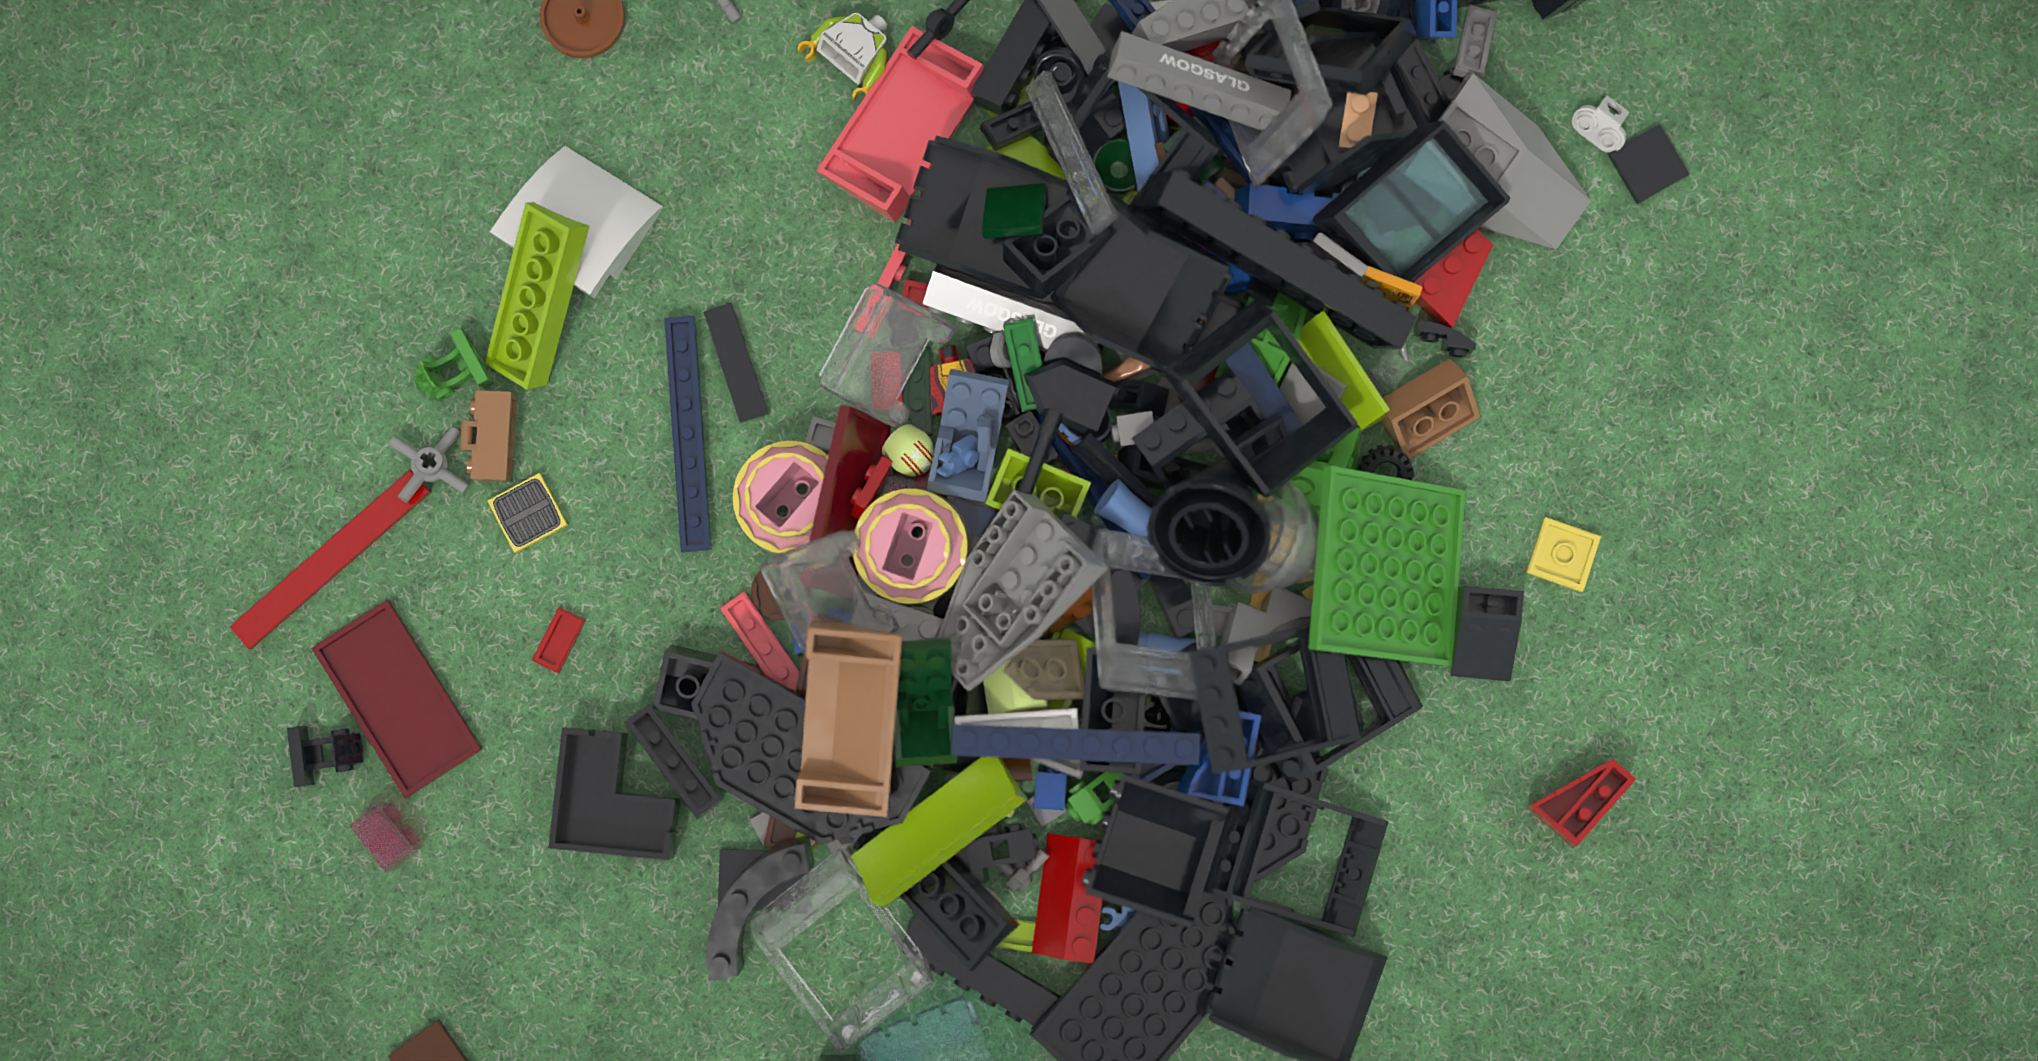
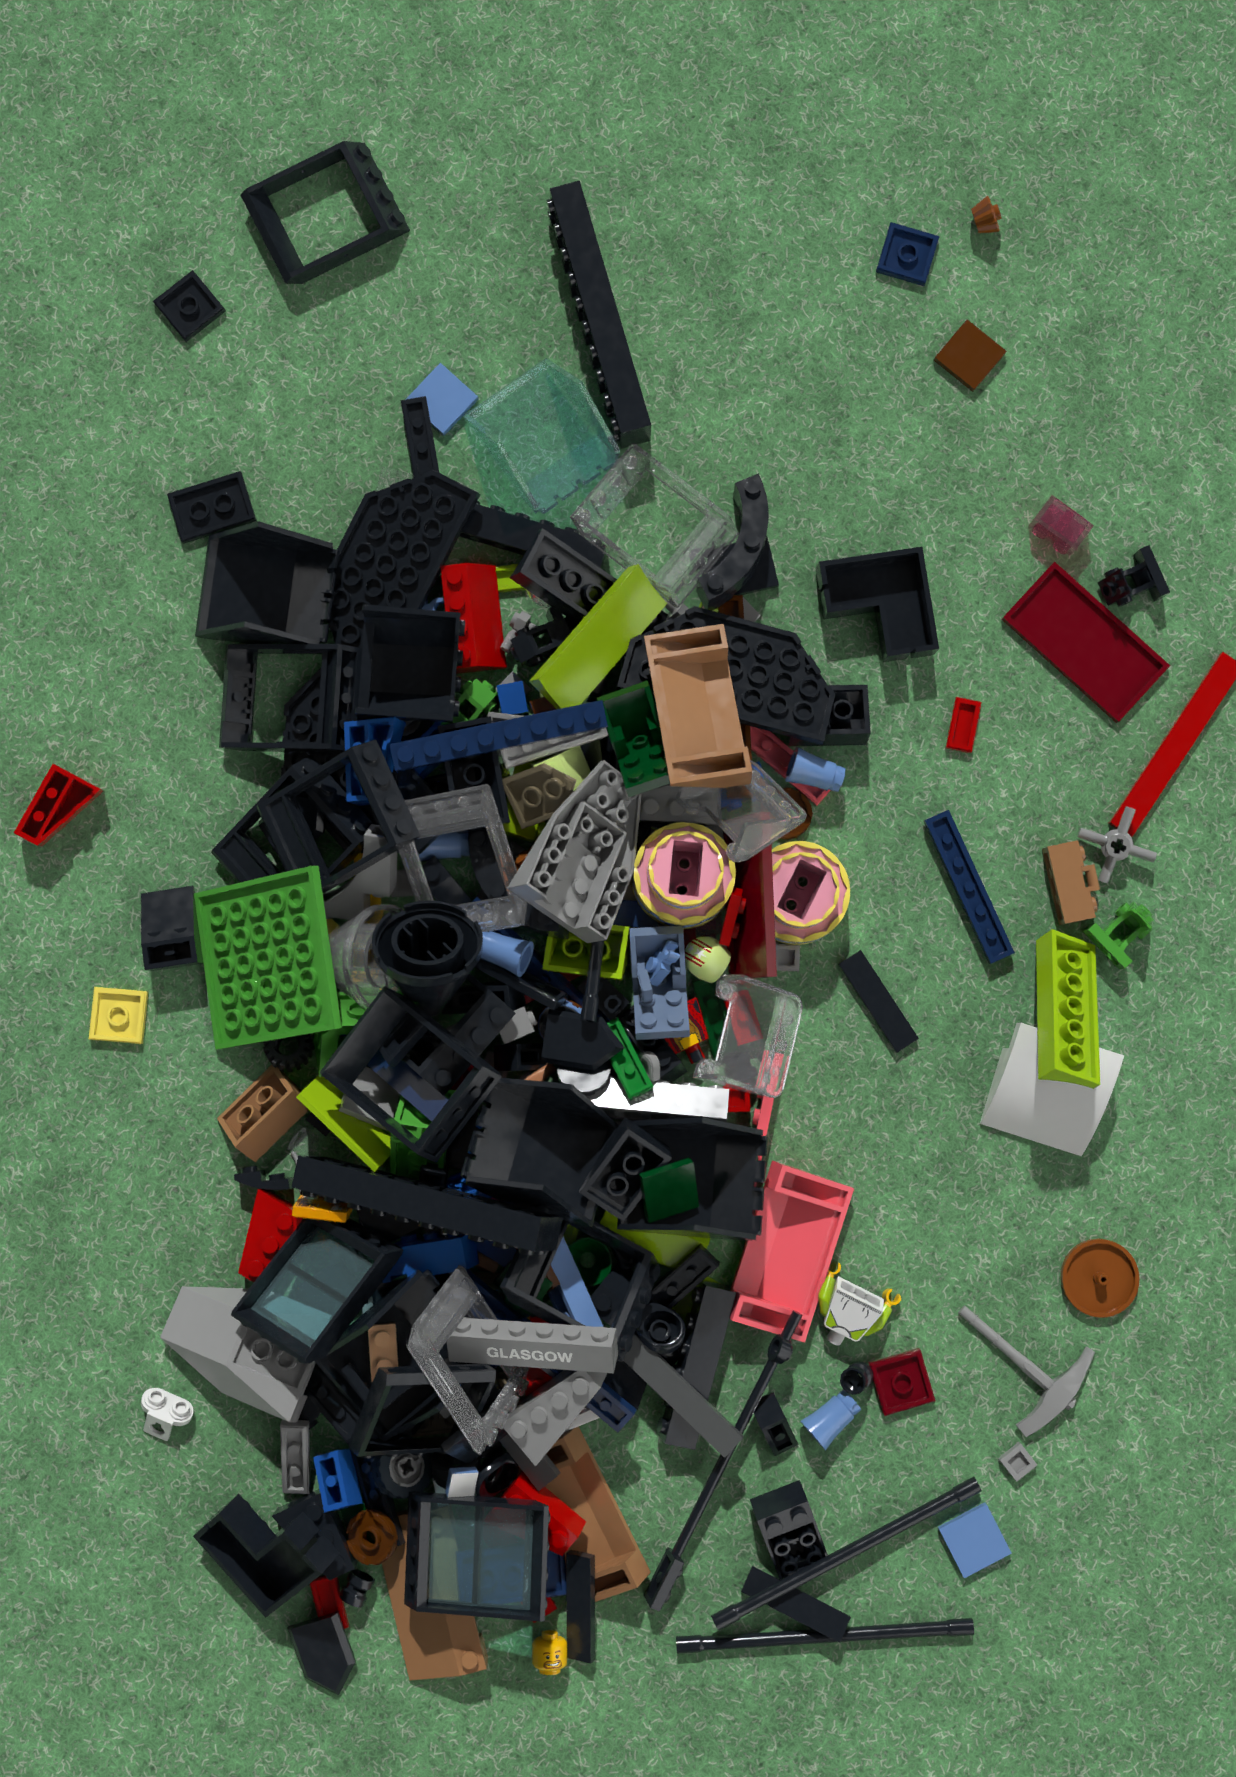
camera: 165 degrees right, 0 degrees up
(527, 513) = (1020, 826): tile -> none
(603, 460) = (968, 887): none -> dark blue plate
(673, 761) = (837, 645): black brick -> none
(688, 434) = (902, 928): dark blue plate -> none
(737, 627) = (814, 771): none -> medium blue plant
(1071, 153) = (632, 1256): clear tile -> none
(1330, 250) = (373, 1223): light grey tile -> none
(1648, 164) = (115, 1385): black tile -> none

